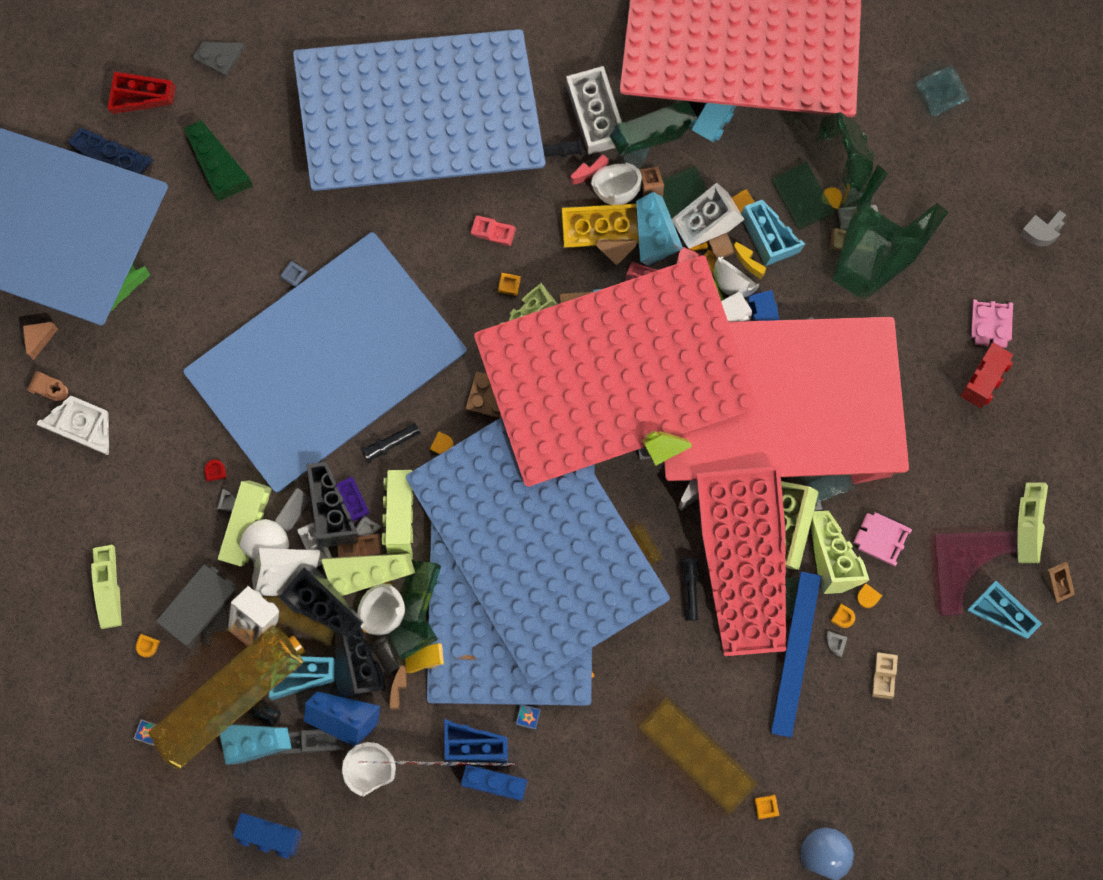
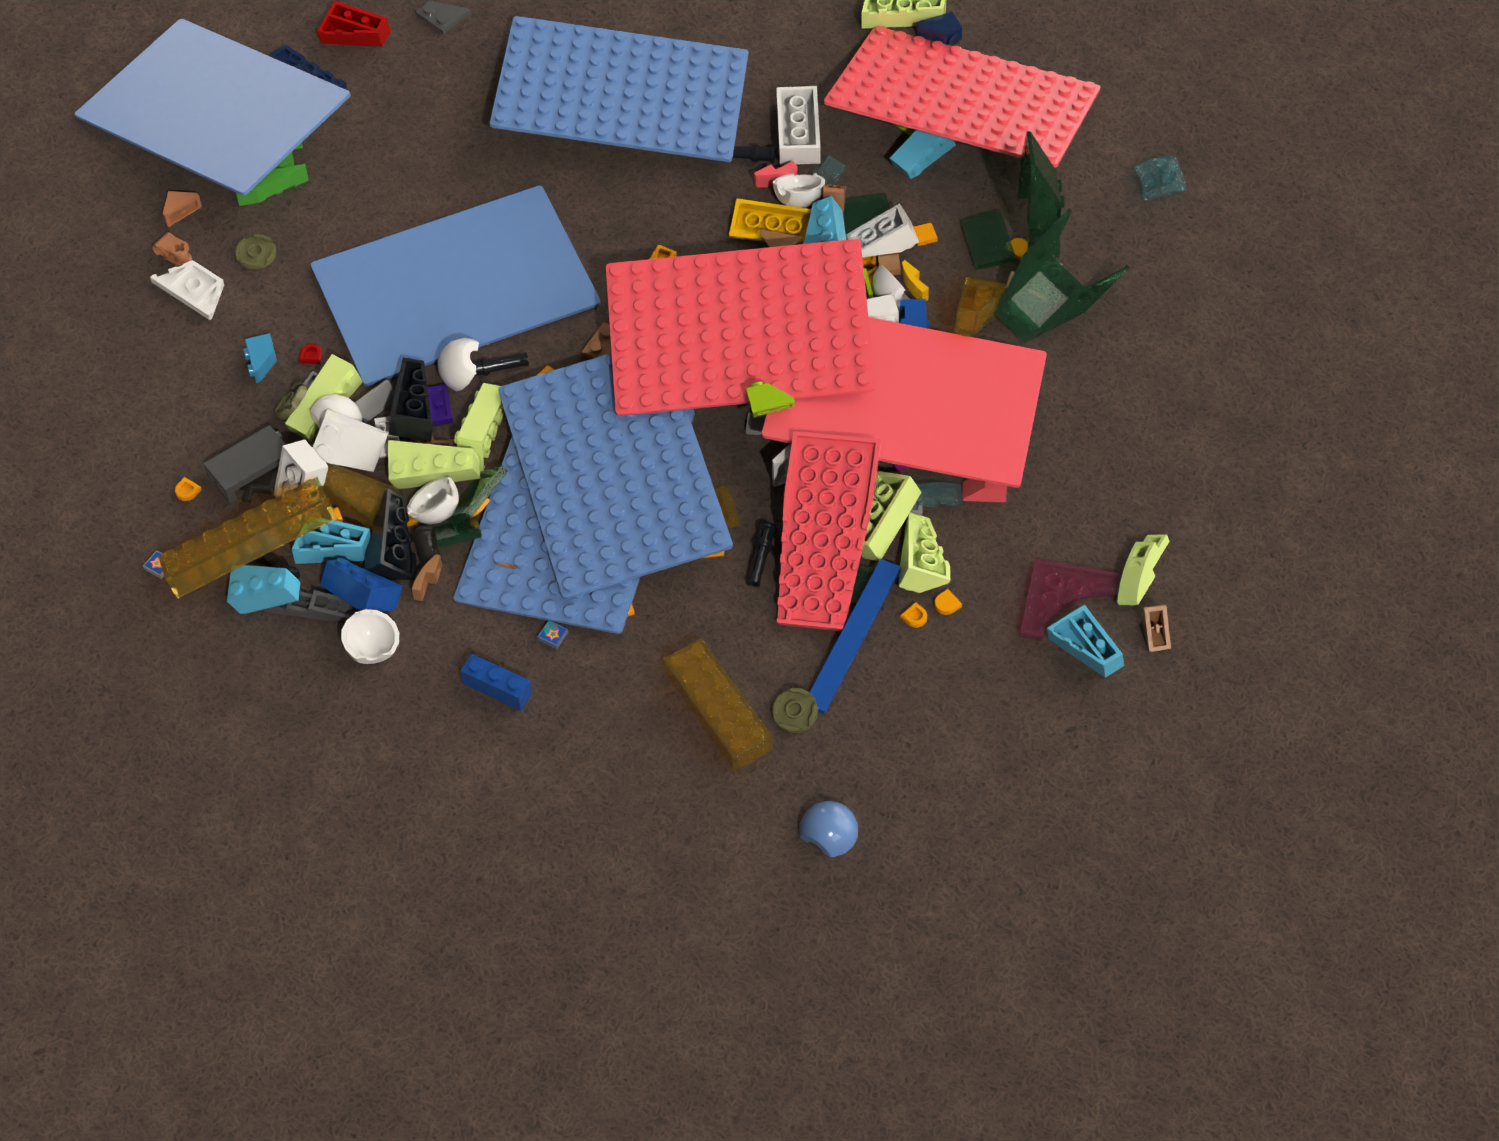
camera: 15 degrees right, 20 degrees down
(105, 587) = (164, 427): yellowish green slope -> none
(124, 374) = (253, 257): none -> olive tile
(170, 485) = (261, 354): none -> dark azure slope
(215, 532) = (291, 401): none -> olive tile
(218, 165) = (408, 100): dark green wedge -> none
(267, 835) = (247, 677): blue wedge -> none
(293, 274) = (449, 206): sand blue tile -> none
(319, 600) = (371, 471): black wedge -> none
(357, 457) = (455, 363): none -> white cylinder
(367, 527) = (444, 432): light grey tile -> none
(428, 657) = (463, 553): yellow slope -> none
(436, 763) = (435, 642): sticker -> none
(473, 746) = (487, 642): blue wedge -> none
(493, 231) = (659, 207): coral slope -> none
(654, 128) = (850, 145): clear green wedge -> none
(766, 743) = (795, 710): none -> olive tile
(766, 807) = (777, 771): light orange tile -> none
(769, 234) = (941, 262): medium azure wedge -> none
(815, 277) = (977, 305): none -> clear yellow wedge
(836, 643) = (900, 637): light grey tile -> none
(881, 537) = (976, 551): bright pink plate -> none
(884, 675) = (942, 678): tan slope -> none
(987, 376) = (1131, 429): red wedge -> none
(991, 323) = (1153, 388): bright pink plate -> none
(1041, 233) = (1228, 318): light grey brick -> none

